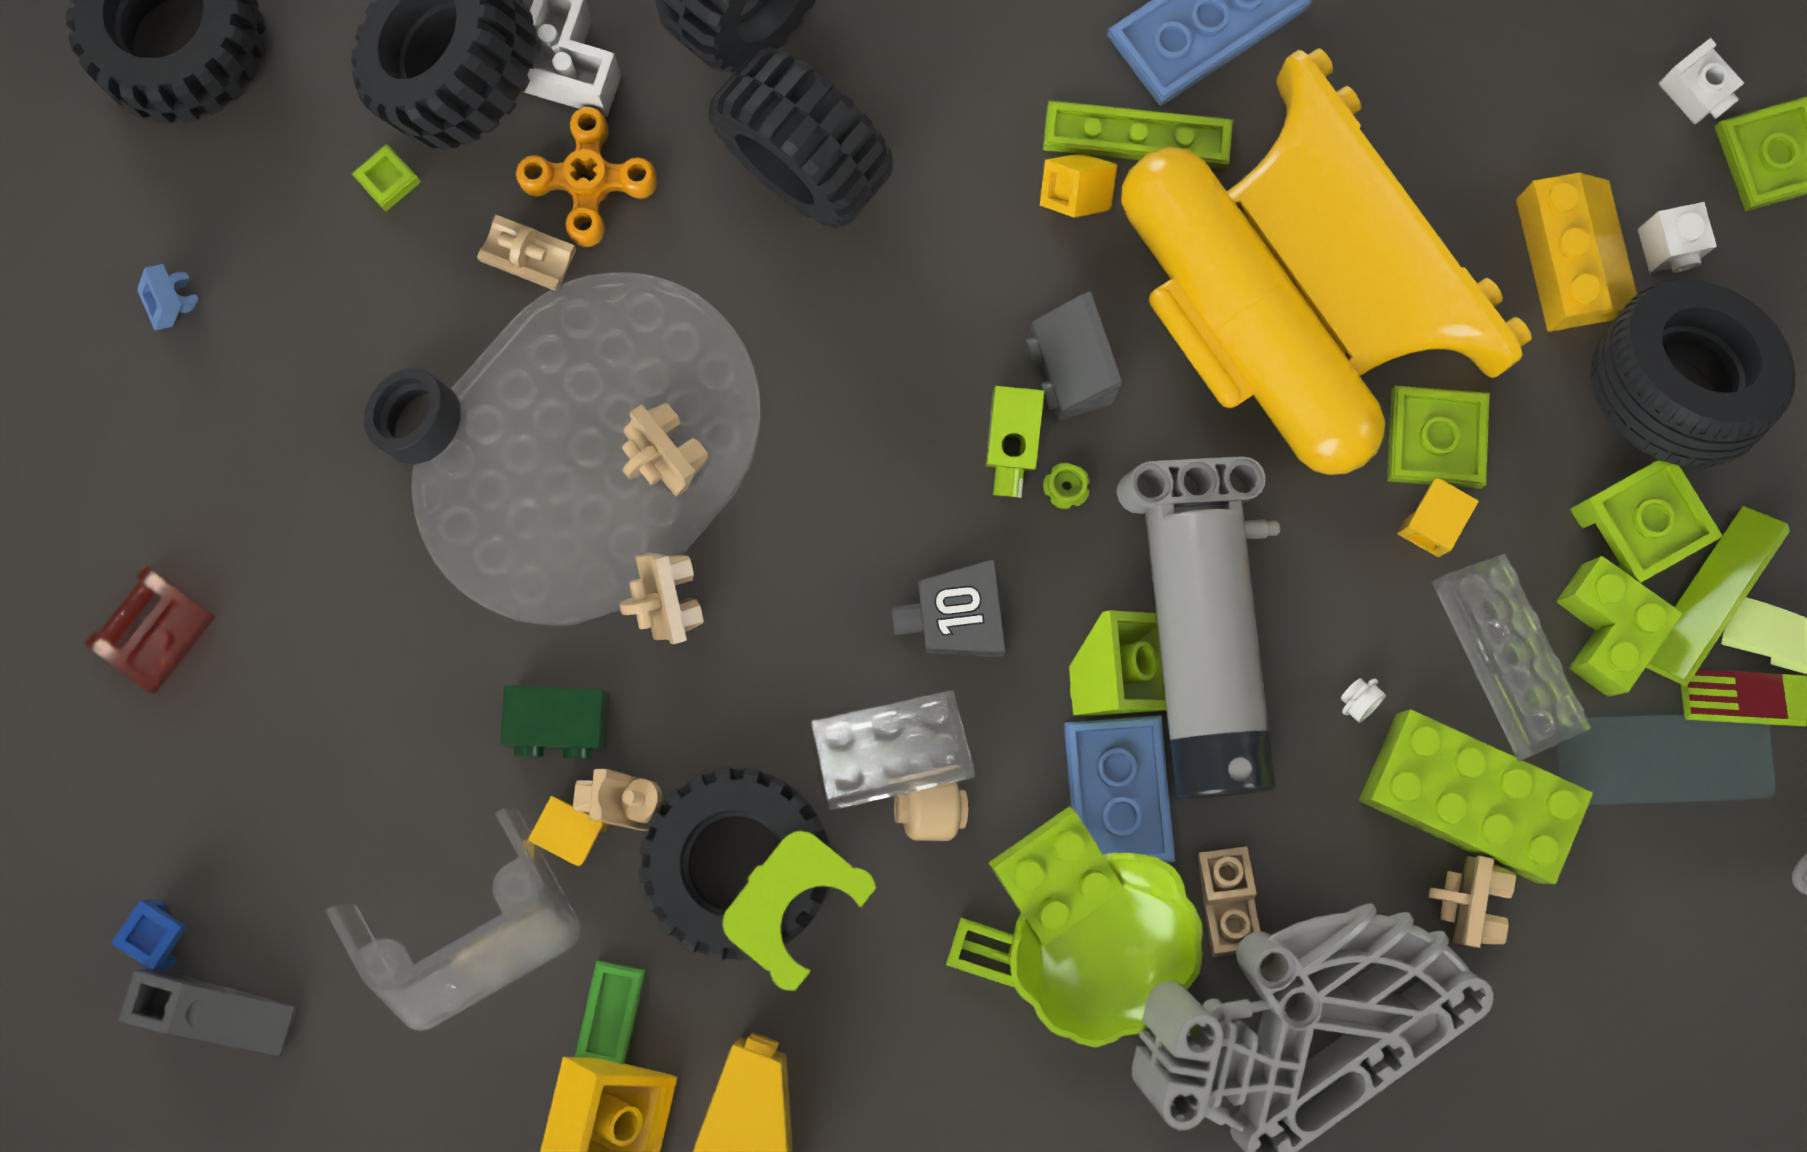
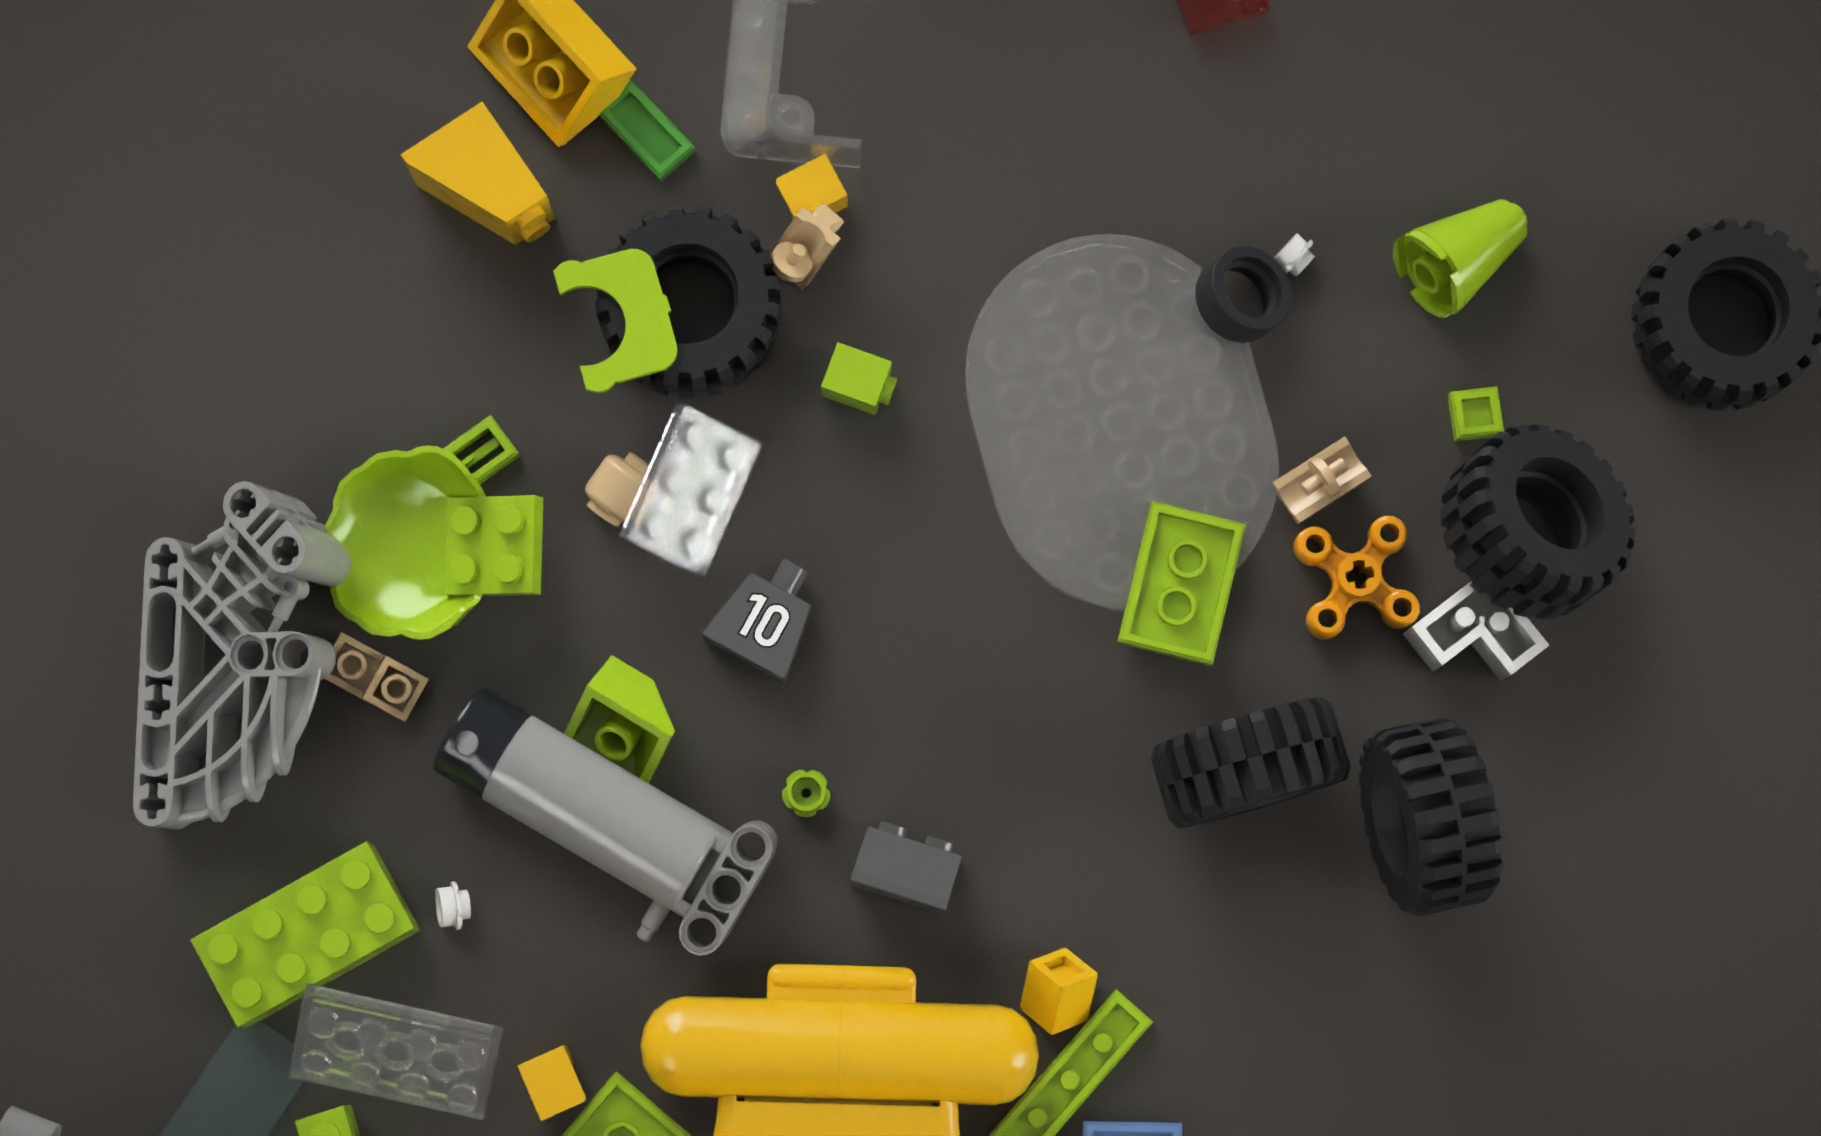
camera: 120 degrees right, 0 degrees up
(160, 298) = (1493, 161): medium blue tile -> none
(261, 268) = (1458, 254): none -> lime cone
(349, 402) = (1295, 255): none -> white plate
(554, 720) = (909, 241): dark green brick -> none
(655, 454) = (1092, 474): tan hips -> none
(656, 599) = (950, 384): tan hips -> none
(688, 306) = (1181, 583): none -> lime tile
(702, 677) = (858, 379): none -> lime brick
(1019, 415) = (889, 784): lime torso -> none
(1121, 784) = (526, 655): medium blue tile -> none
(1478, 881) = (208, 858): tan hips -> none

